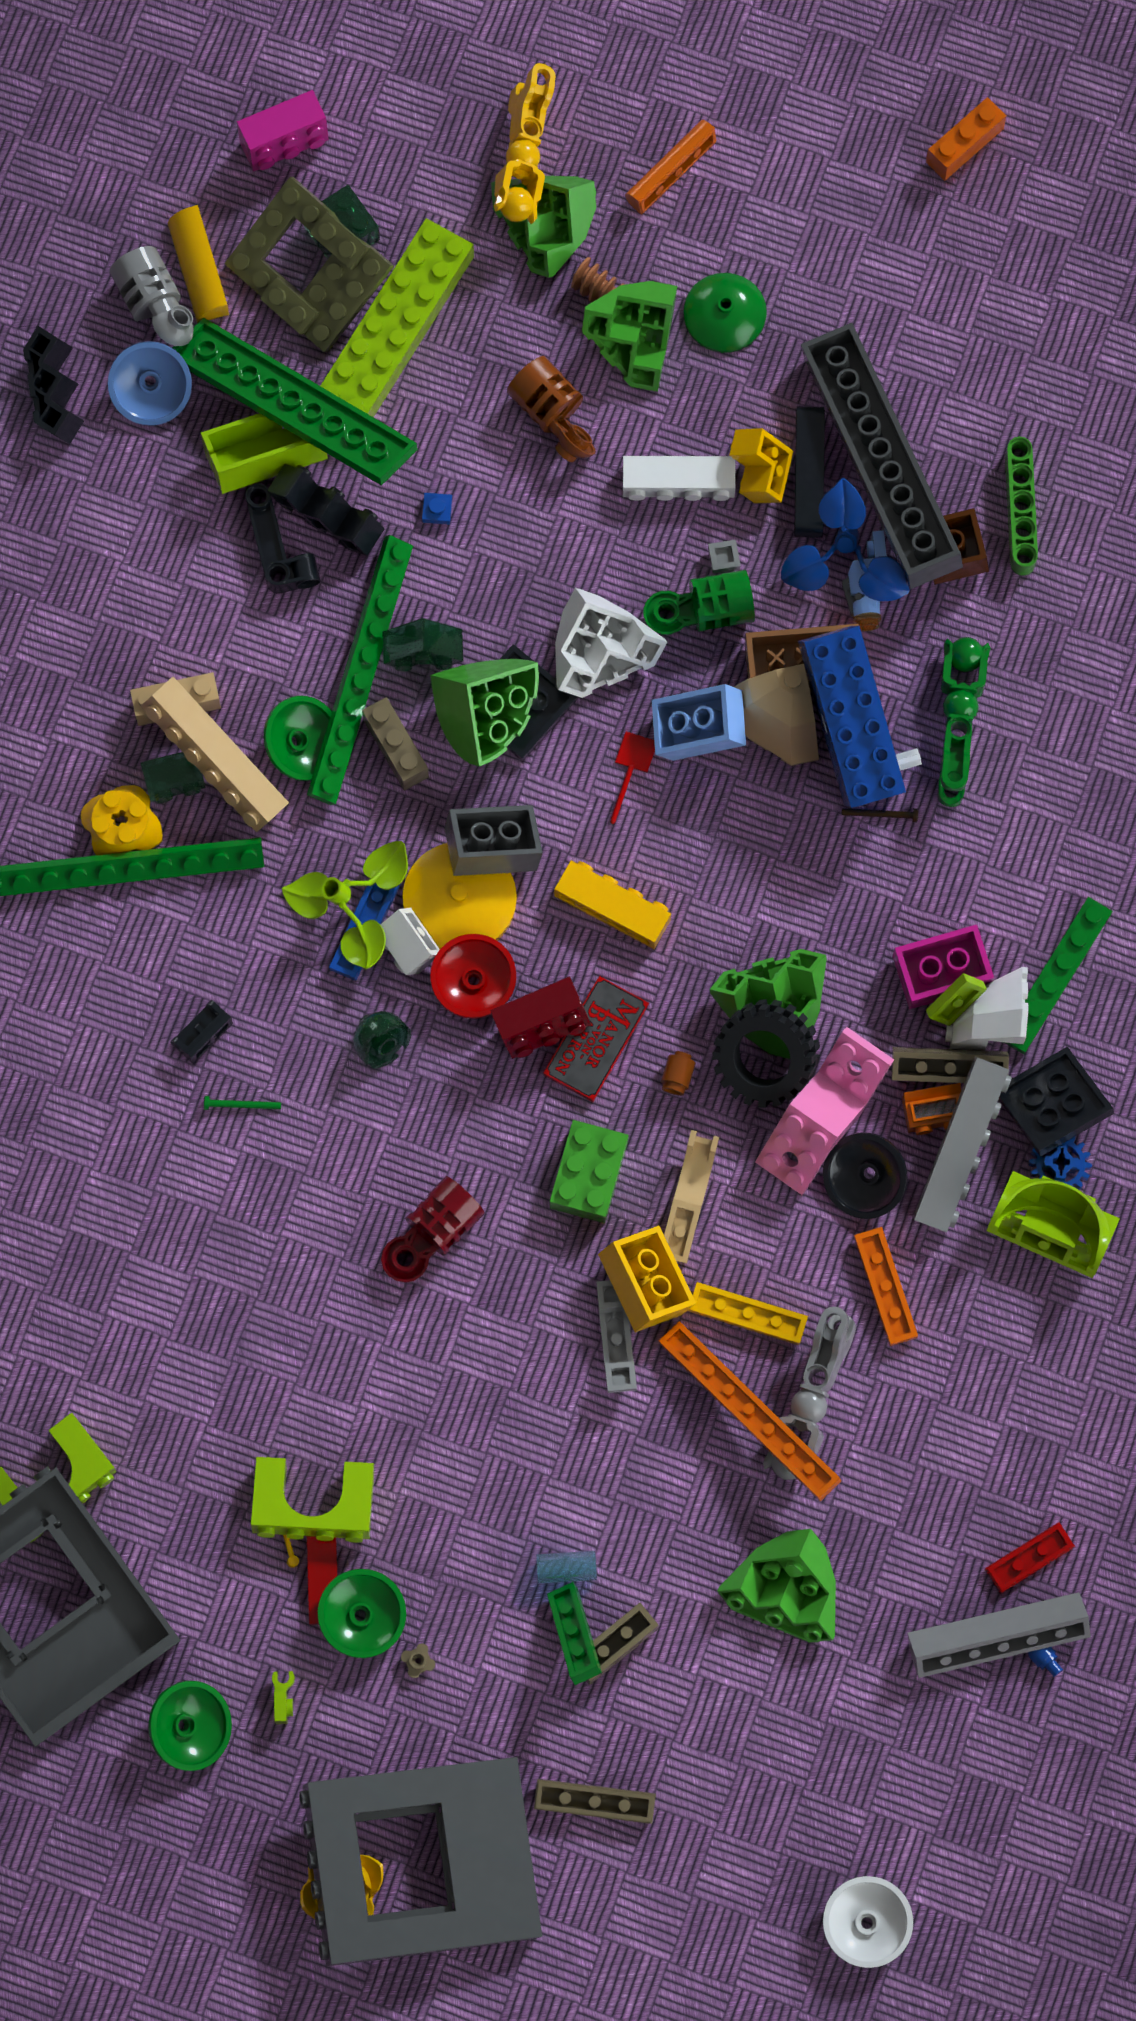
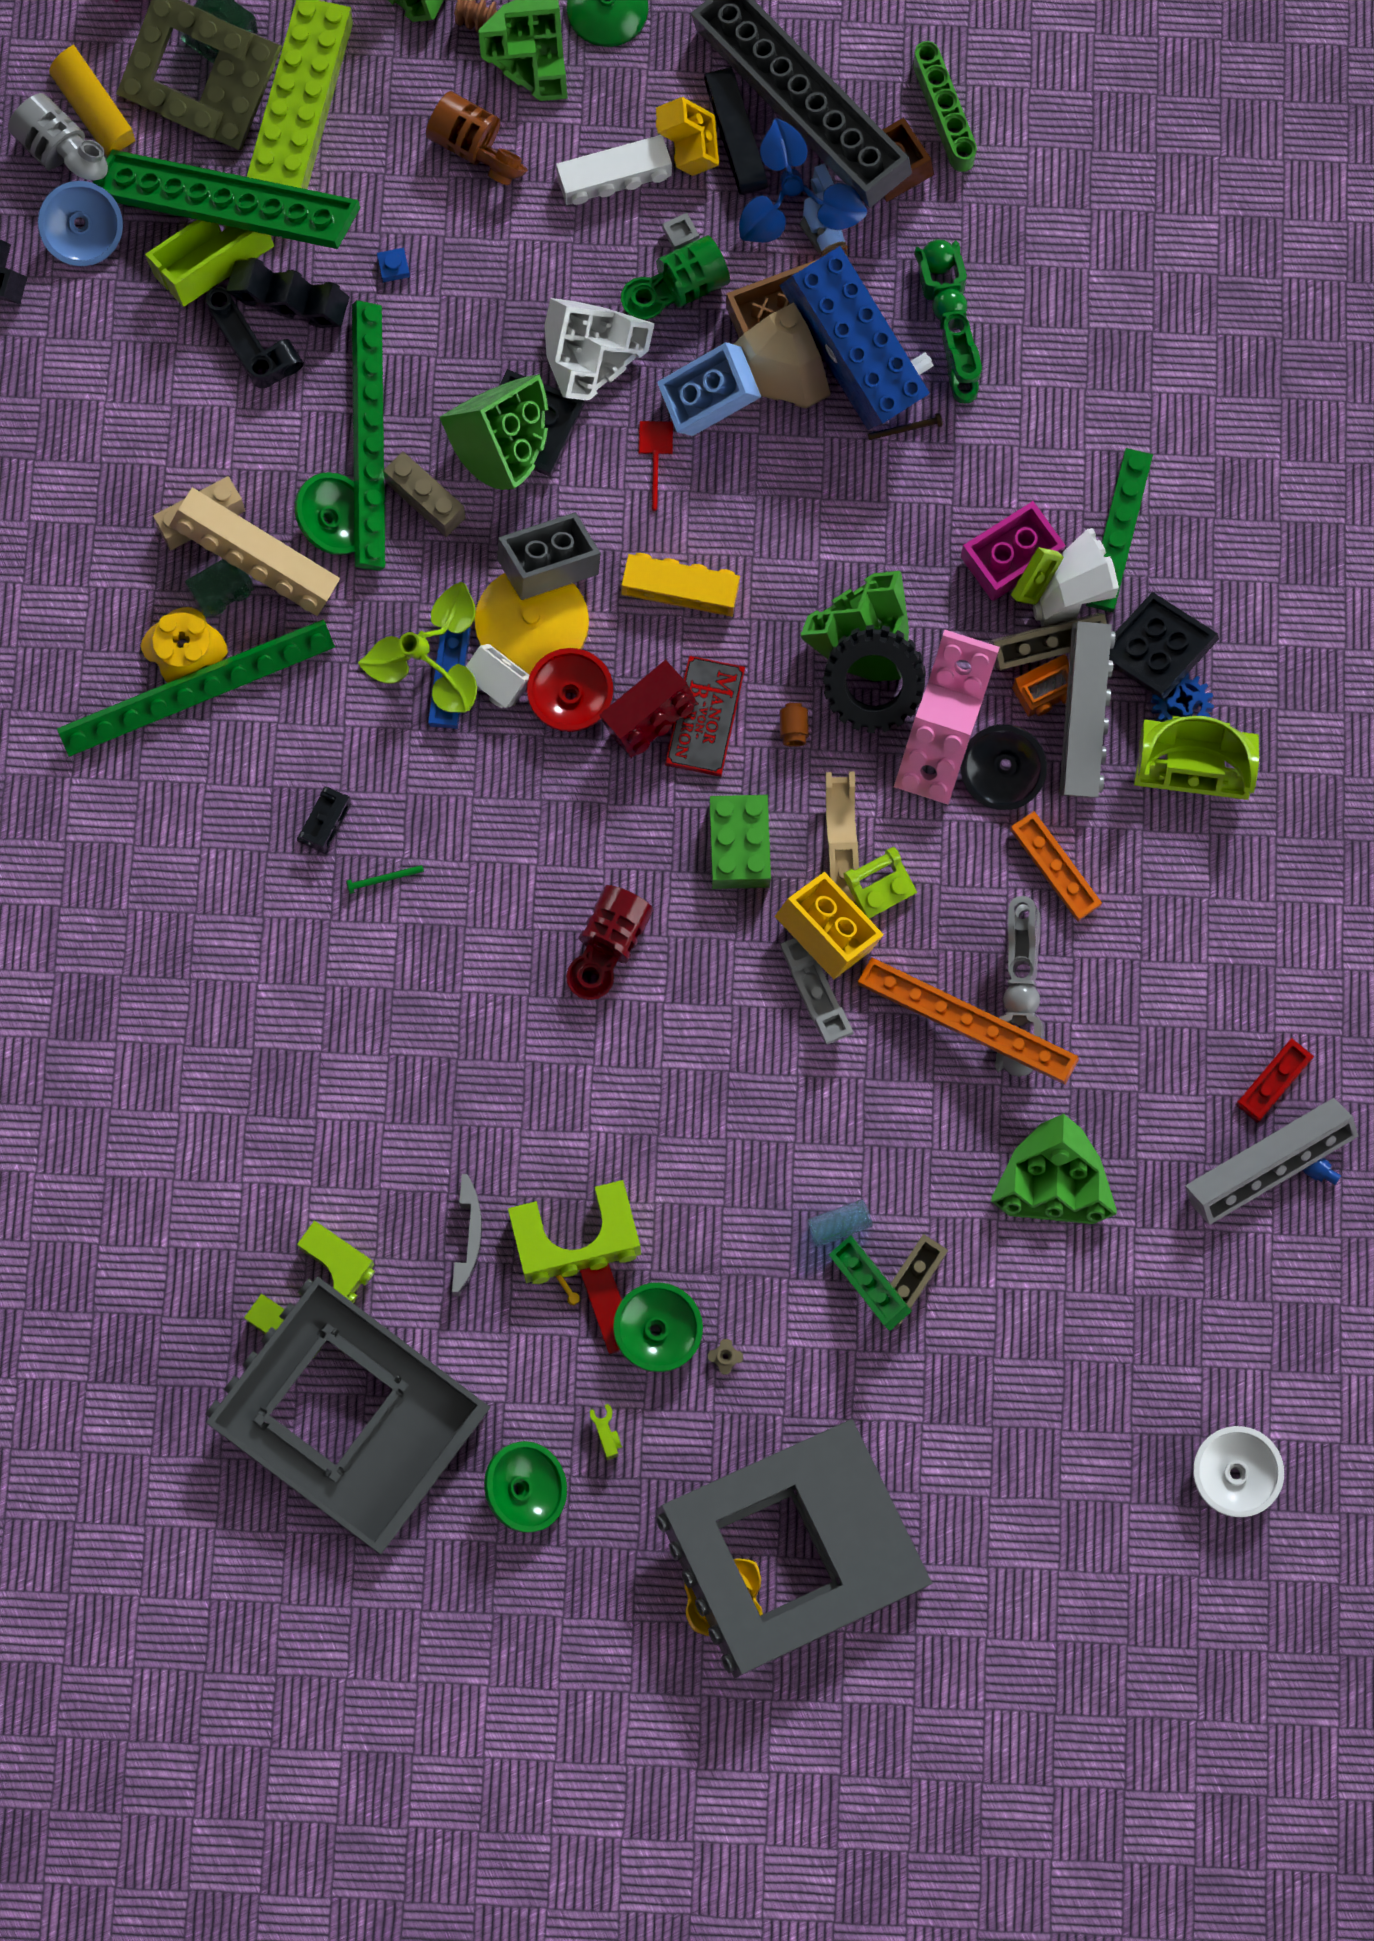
camera: 20 degrees left, 0 degrees up
(197, 1504) = (464, 1271): none -> light grey slope
(379, 1038) = (498, 774): clear green cylinder -> none
(422, 643) = (421, 391): clear green brick -> none
(594, 1801) = (939, 1438): dark tan brick -> none
(713, 1261) = (885, 891): none -> lime plate
(748, 1313) = (935, 930): yellow plate -> none

